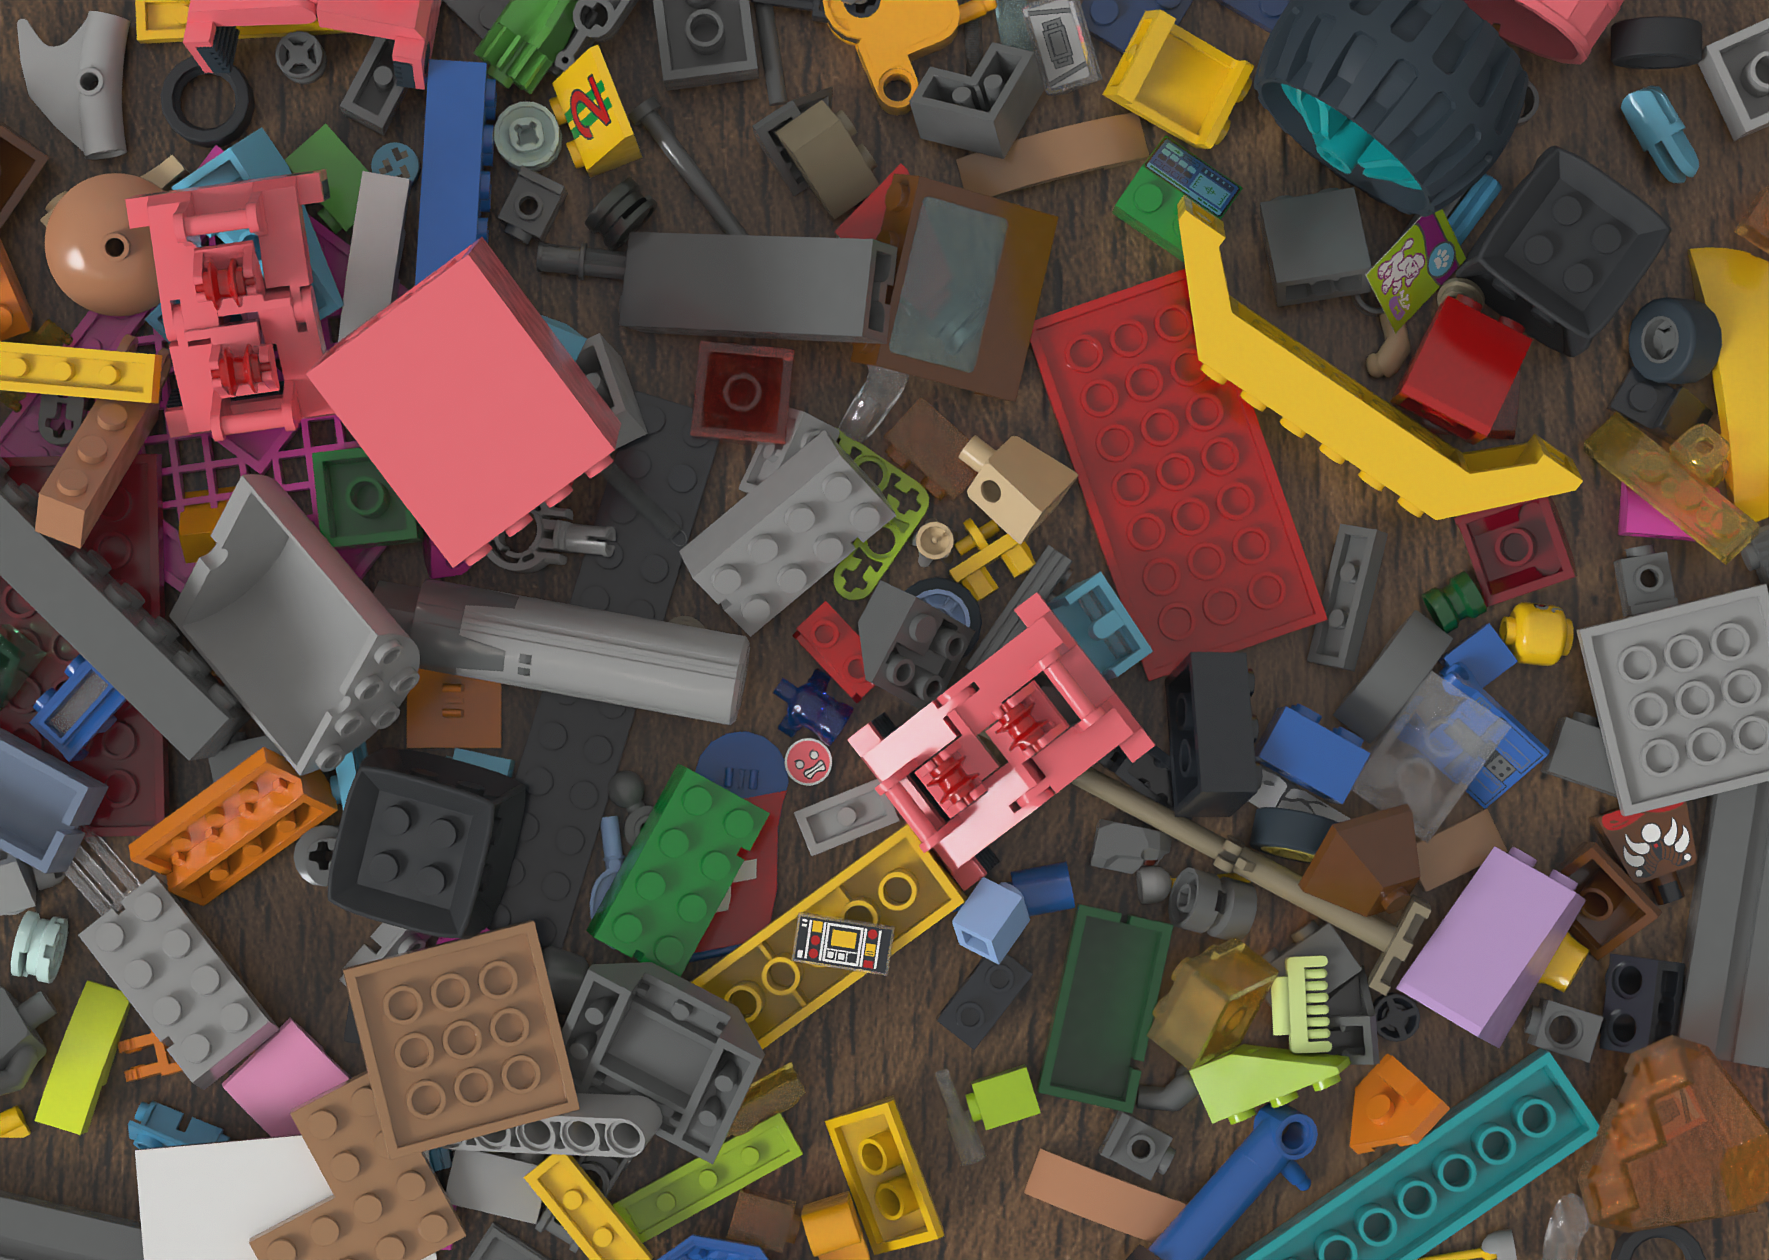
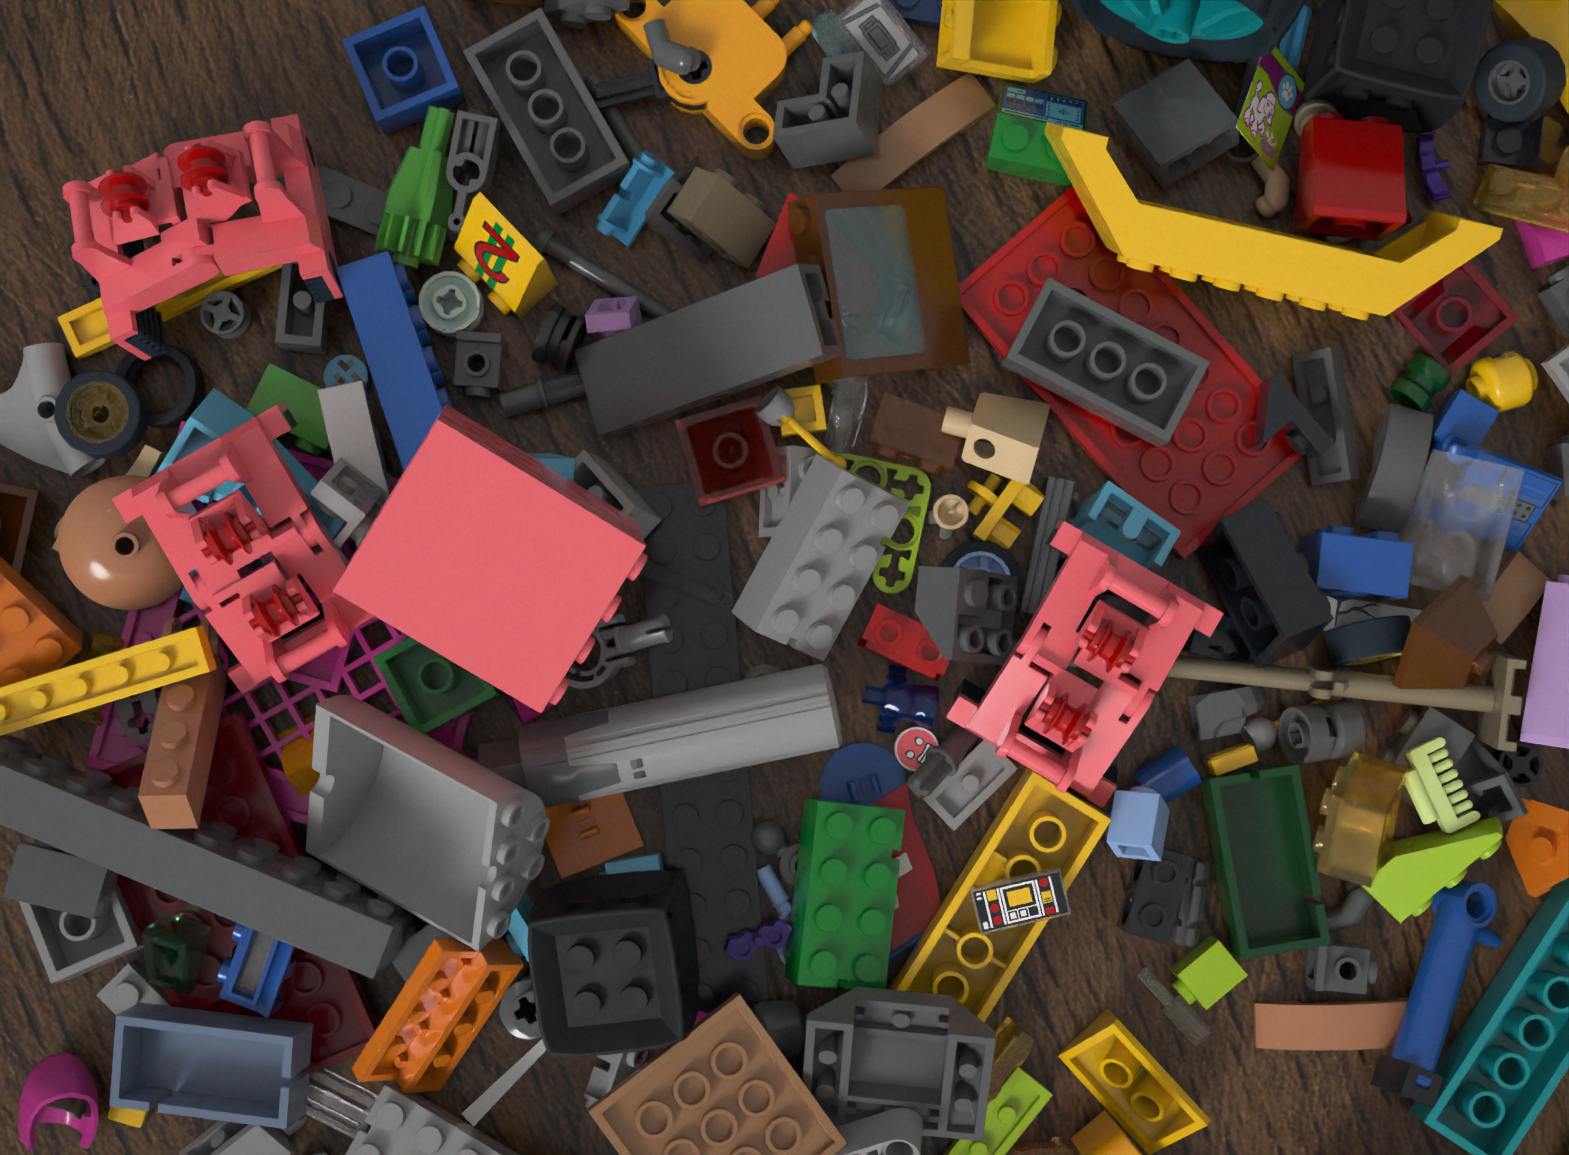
camera: 25 degrees left, 0 degrees up
(129, 87) = (84, 399): none -> wheel
(253, 932) = (502, 1085): none -> white sticker
(353, 288) = (348, 495): none -> light grey bracket
(561, 883) = (769, 934): none -> dark purple piece
(682, 213) = (613, 315): none -> lavender bracket
(758, 98) = (639, 188): none -> dark azure hinge
(805, 371) = (778, 409): none -> light grey hinge
(827, 782) = (942, 761): none -> dark grey axle
(828, 381) = (808, 410): none -> yellow panel
(1017, 1023) = (1191, 905): none -> dark grey axle
(1113, 896) = (1230, 759): none -> yellow tile
(1143, 454) = (1105, 363): none -> dark grey brick
(1303, 572) = (1281, 408): none -> black slope
(1553, 393) = (1429, 173): none -> dark purple piece

